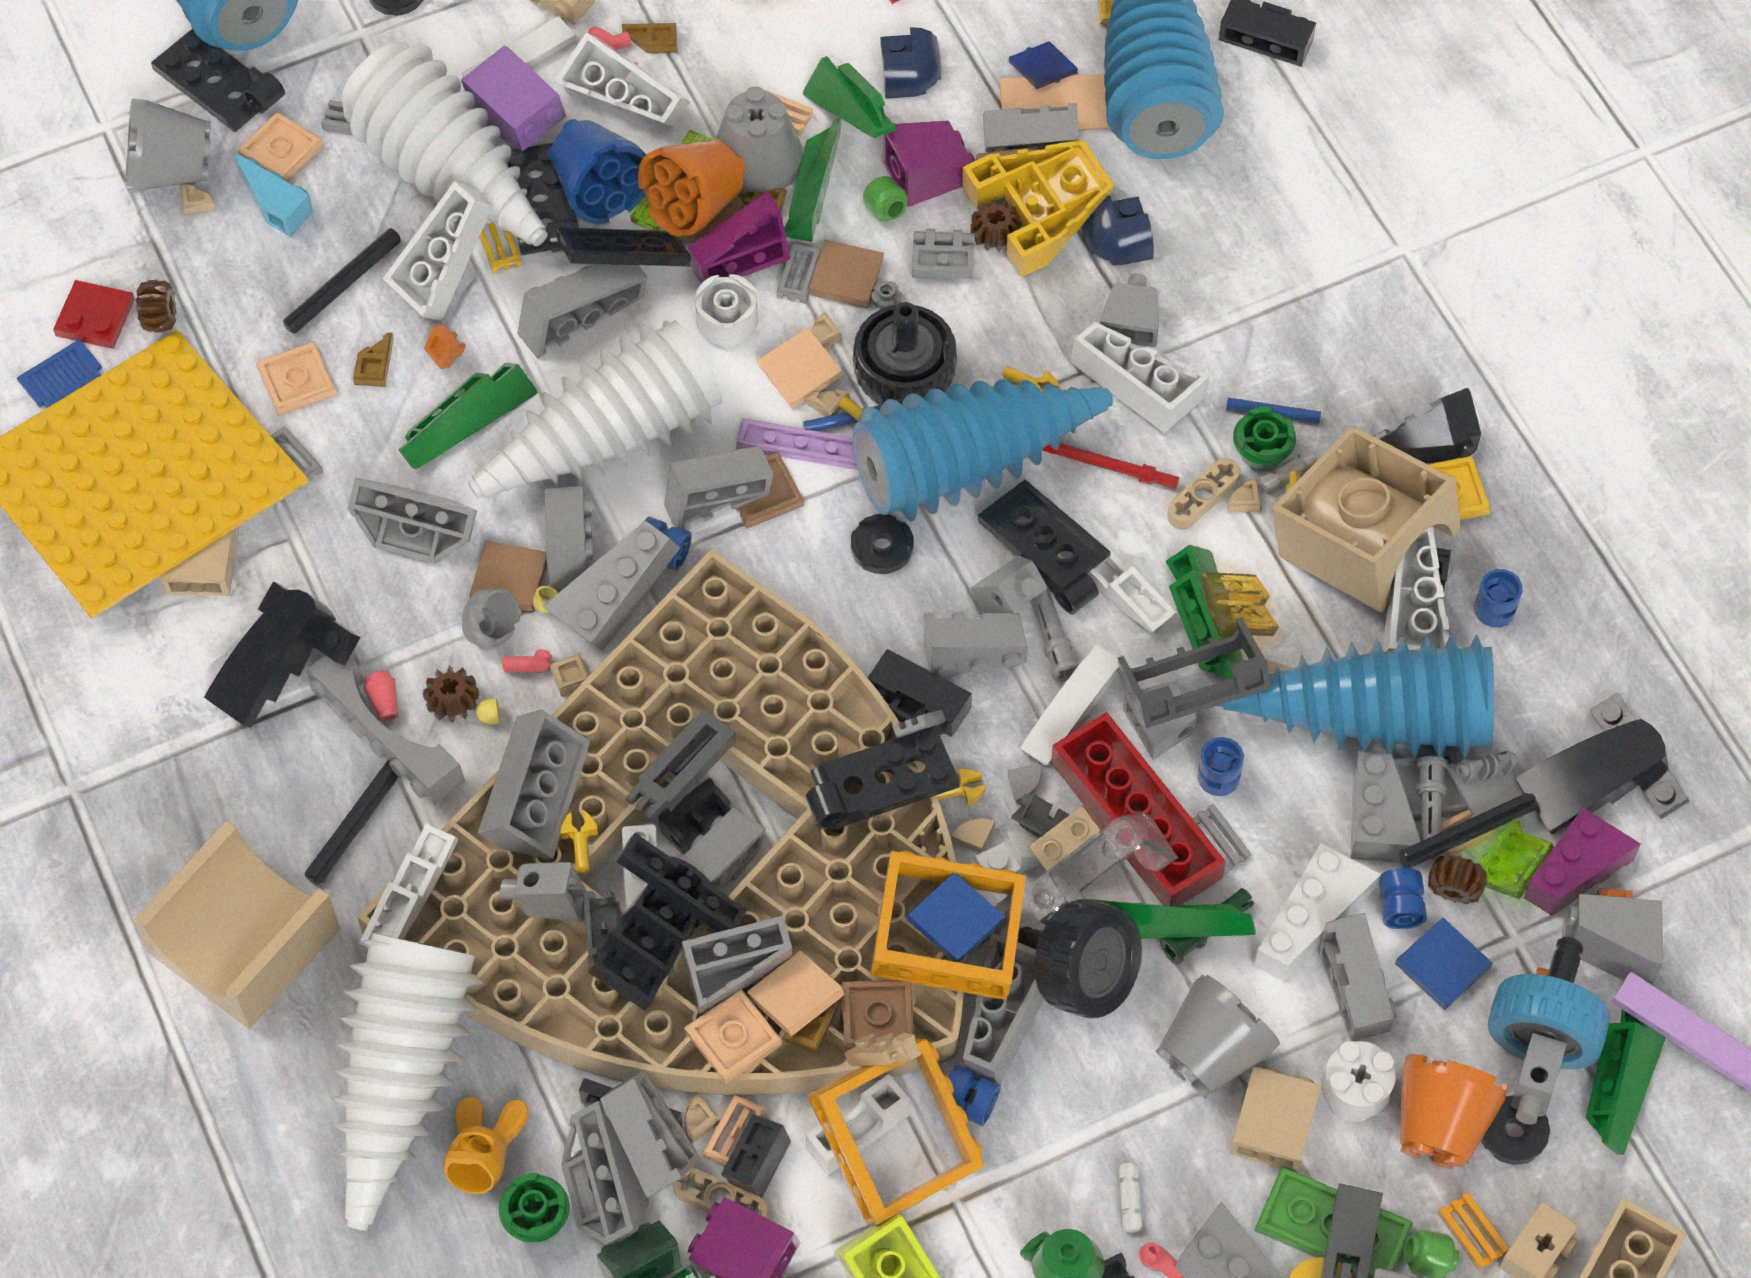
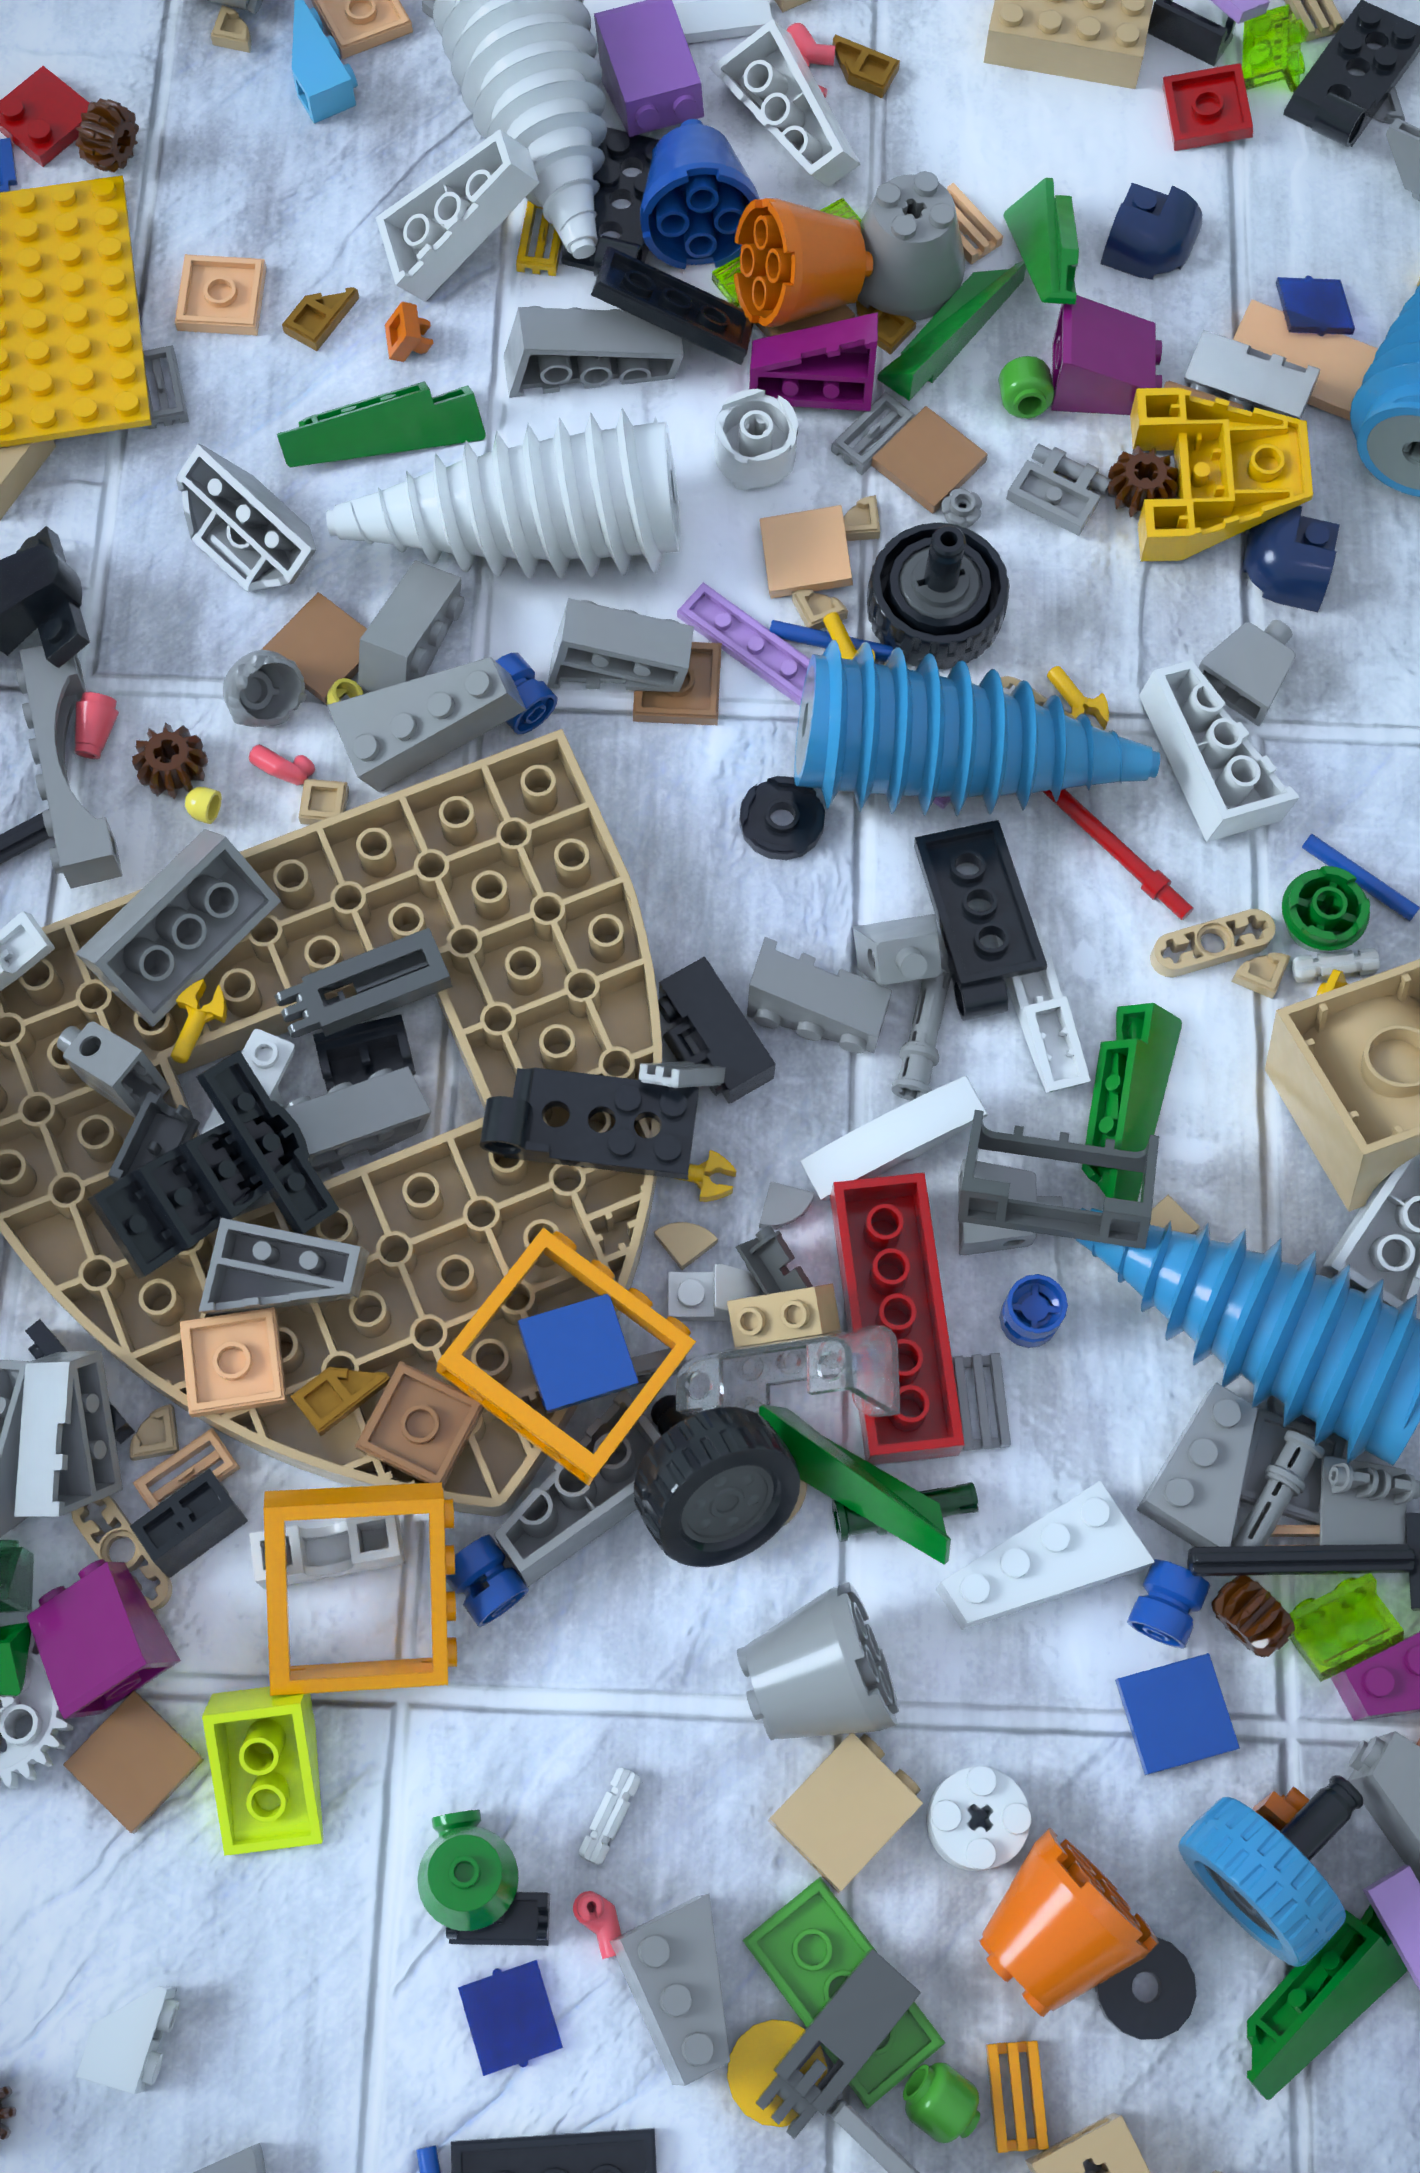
camera: 25 degrees right, 10 degrees up
(341, 280) = (336, 201): black axle -> none
(795, 993) = (333, 1348): light nougat tile -> none
(882, 1050) = (381, 1486): tan hinge -> none
(1236, 597) = (1175, 1106): clear yellow slope -> none
(1356, 977) = (1051, 1682): light grey wedge -> none
(1536, 1084) = (1217, 1936): light grey torso -> none

